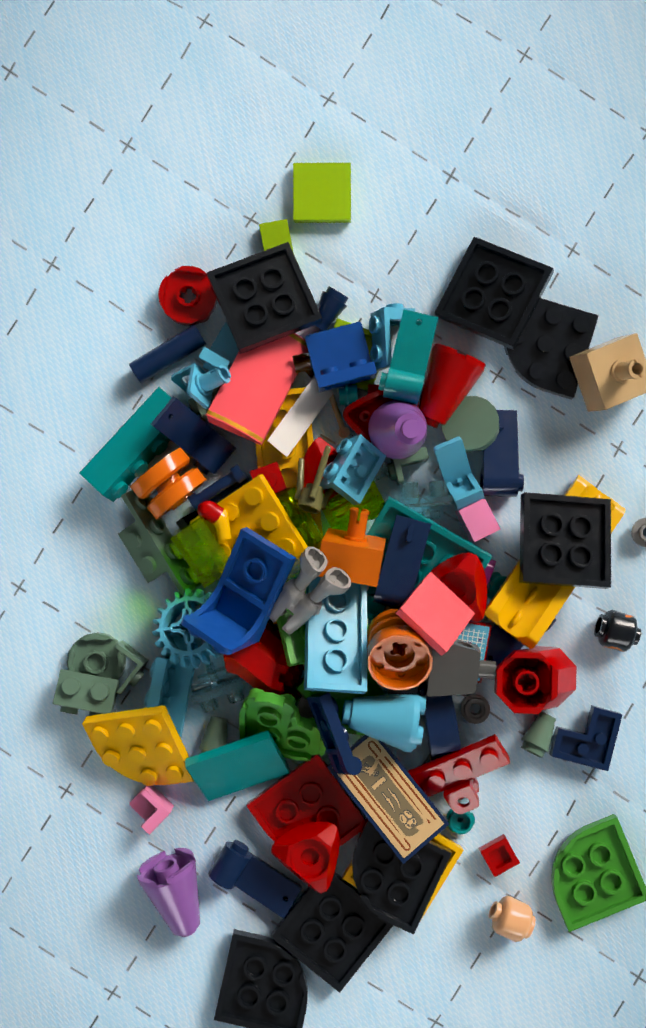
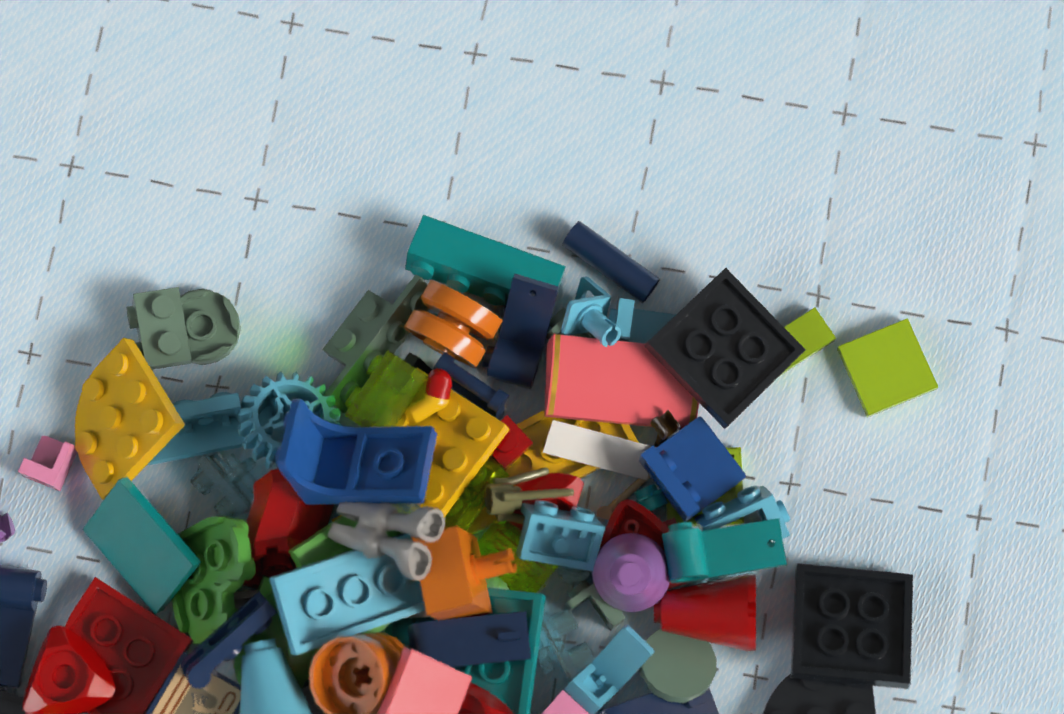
camera: 65 degrees right, 10 degrees down
(138, 658) = (206, 379): sand green bracket -> none
(178, 282) = (672, 247): red plate -> none
(215, 734) = (170, 503): sand green cone -> none
(330, 307) = (750, 433): dark blue cone -> none

